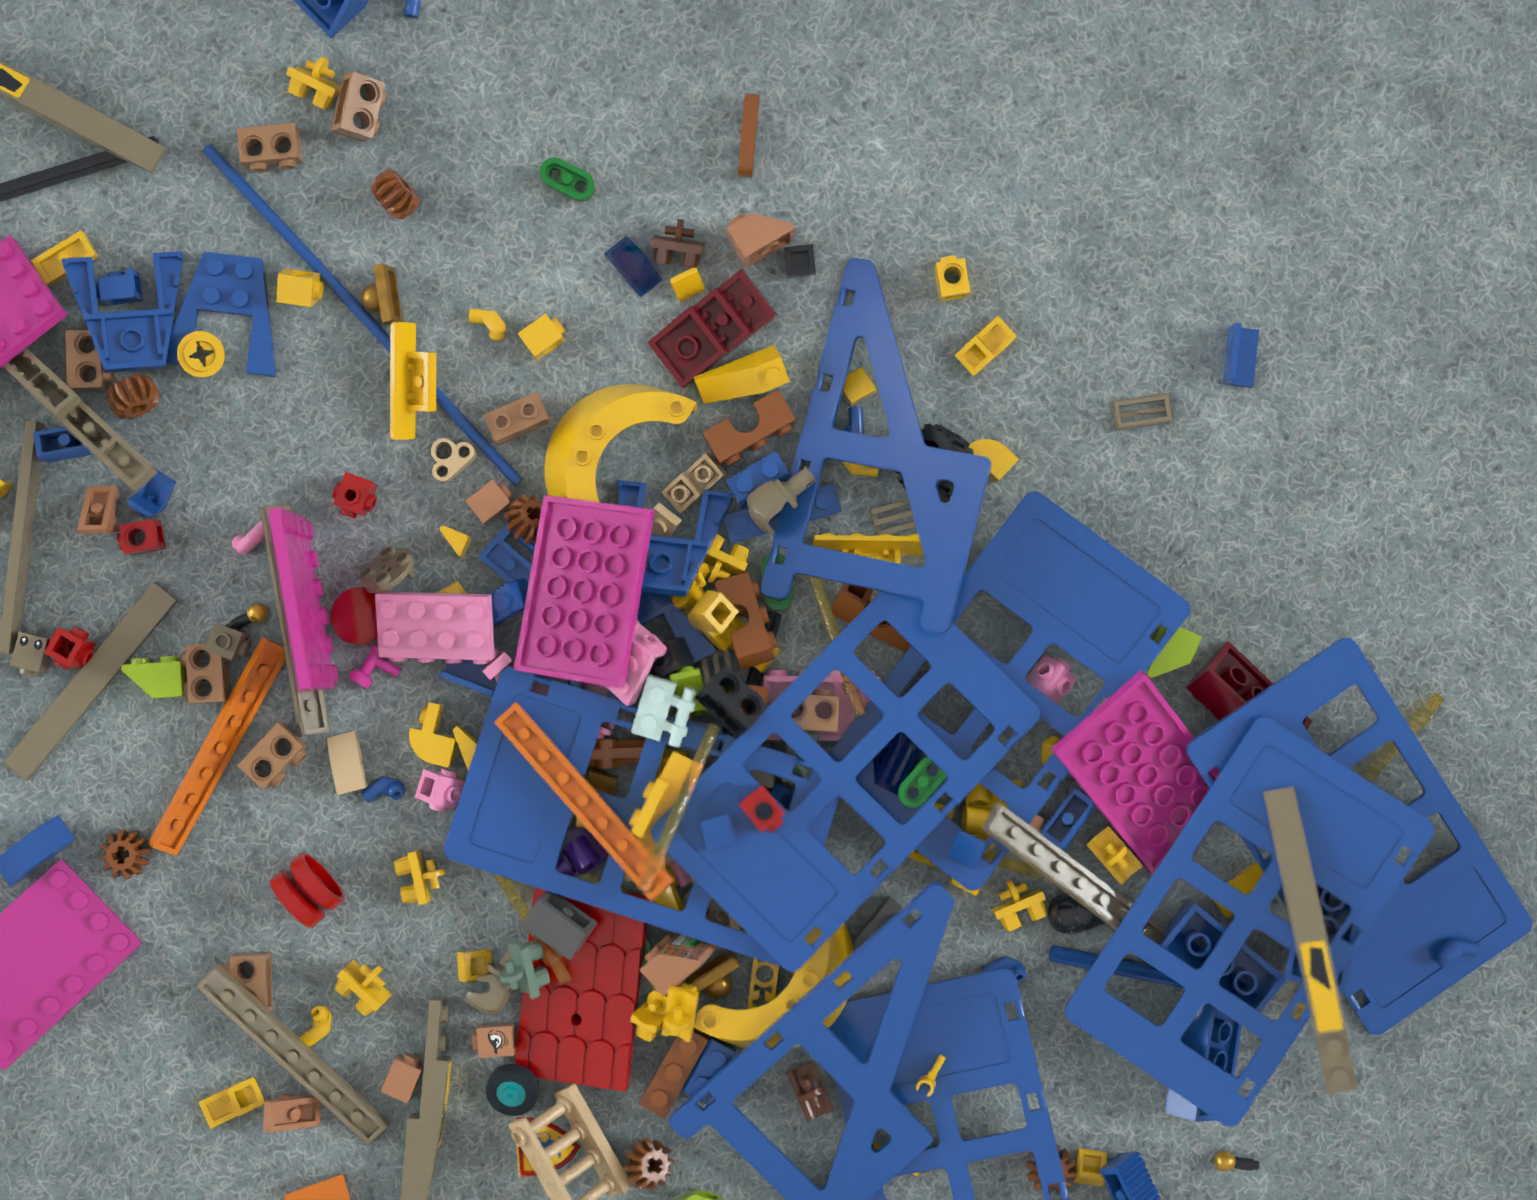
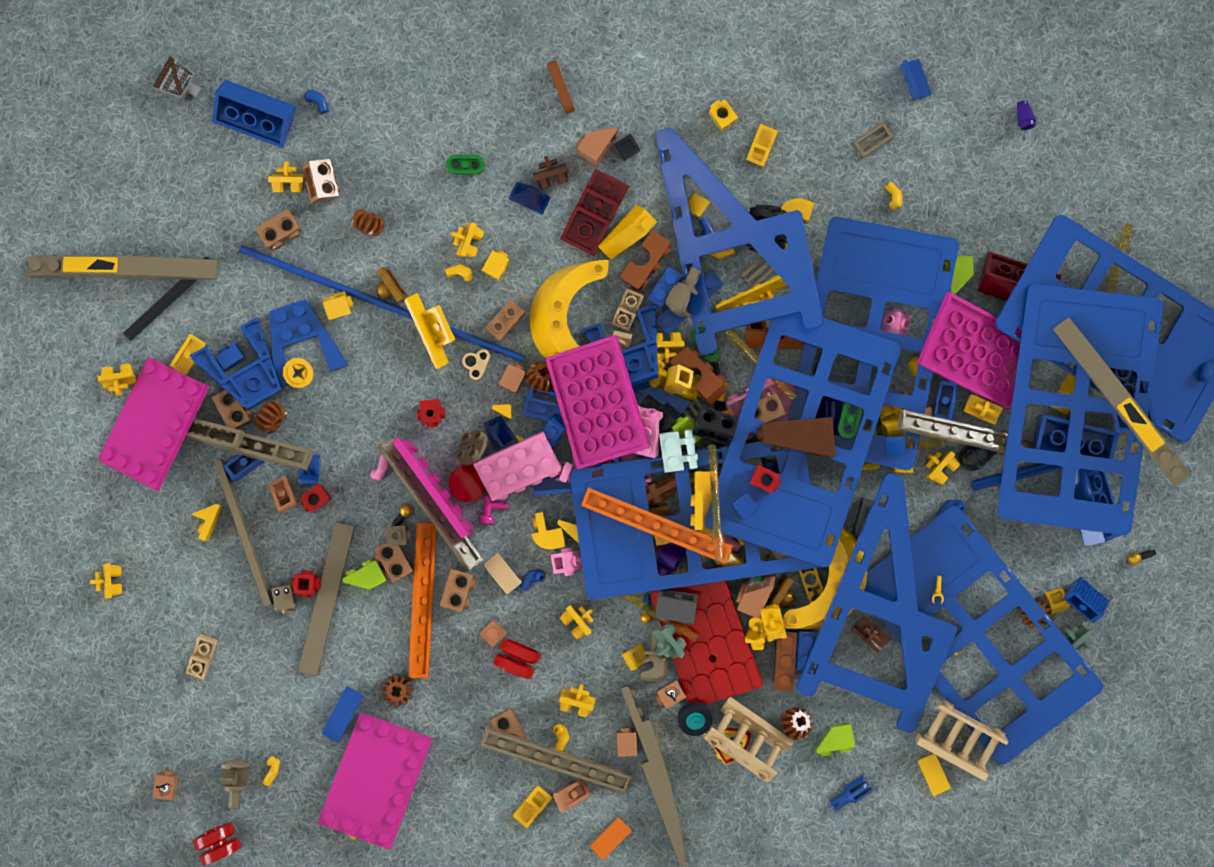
camera: 20 degrees left, 0 degrees up
(293, 838) = (493, 633): none -> nougat brick
(435, 569) = (499, 433): none -> clear blue slope
(511, 917) = (645, 617): none -> pearl gold piece
(529, 274) = (470, 232): none -> yellow hips
(687, 284) = (567, 193): yellow slope -> none
(847, 775) = (804, 436): none -> reddish brown slope
(1137, 504) = (897, 196): none -> yellow arm
(1368, 478) = (1025, 116): none -> dark purple cone

